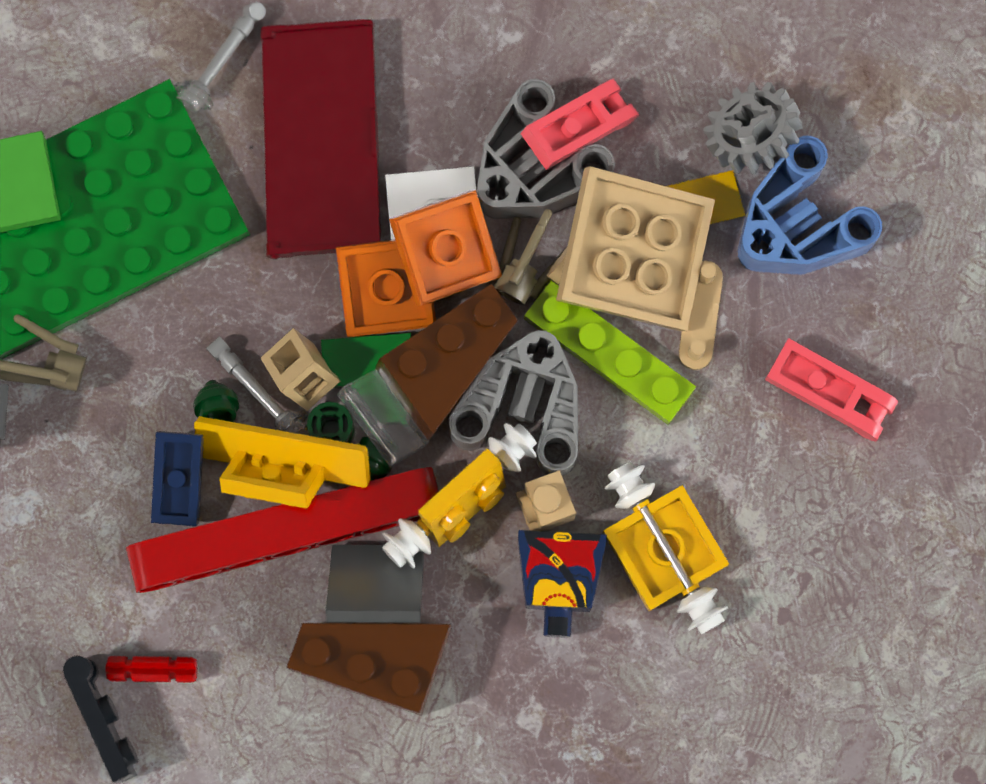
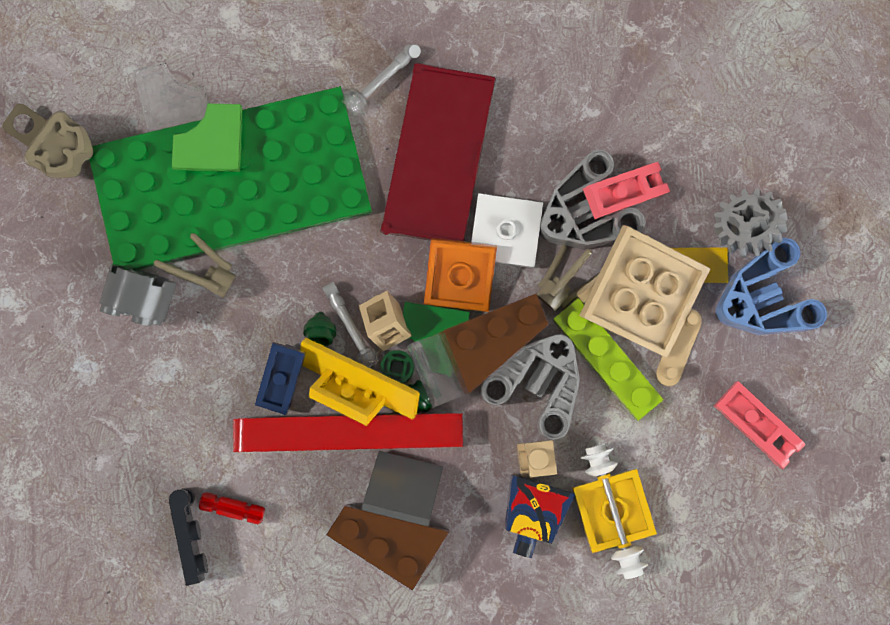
camera: 10 degrees right, 5 degrees up
(445, 247) = (509, 258): orange tile -> none
(473, 489) = (467, 451): yellow plate -> none

